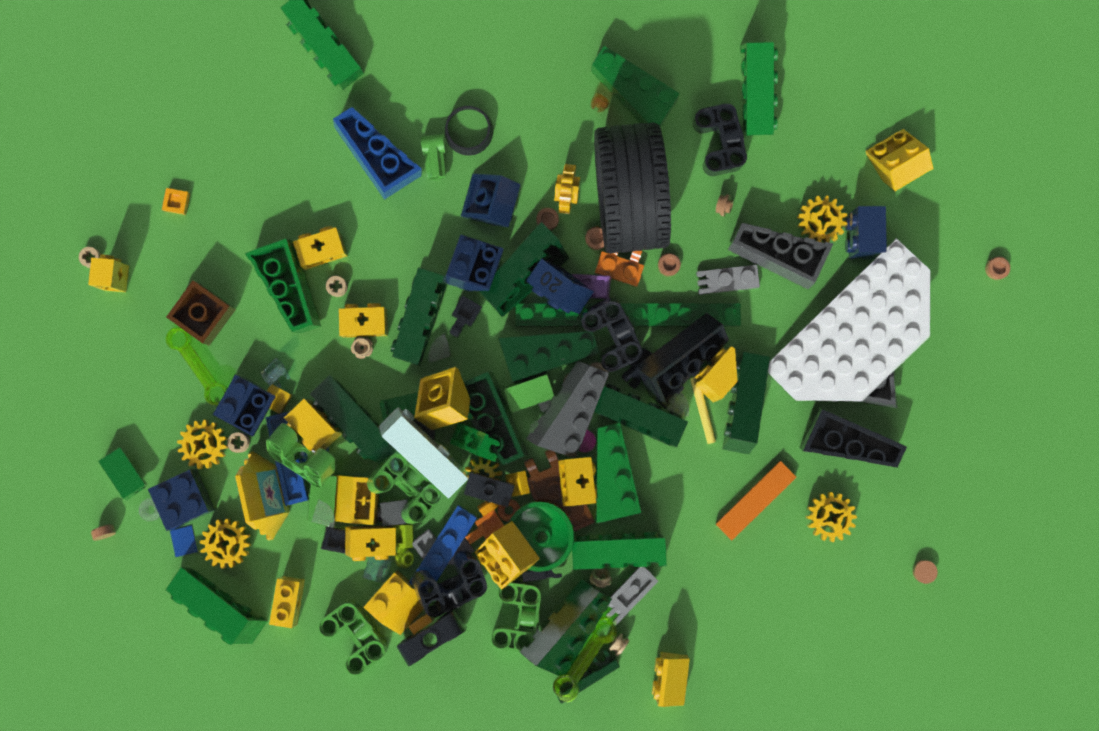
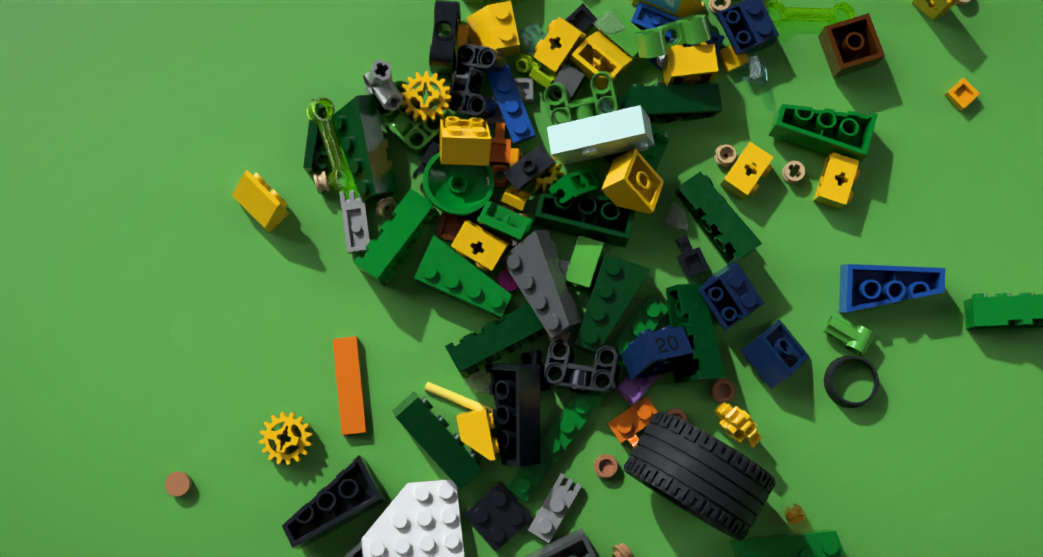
camera: 120 degrees right, 5 degrees down
(499, 623) = (434, 98): none -> yellow gear
(510, 657) = (380, 83): none -> light grey piece
(544, 476) = (504, 222): none -> green hinge
(765, 316) = (498, 516): none -> black plate

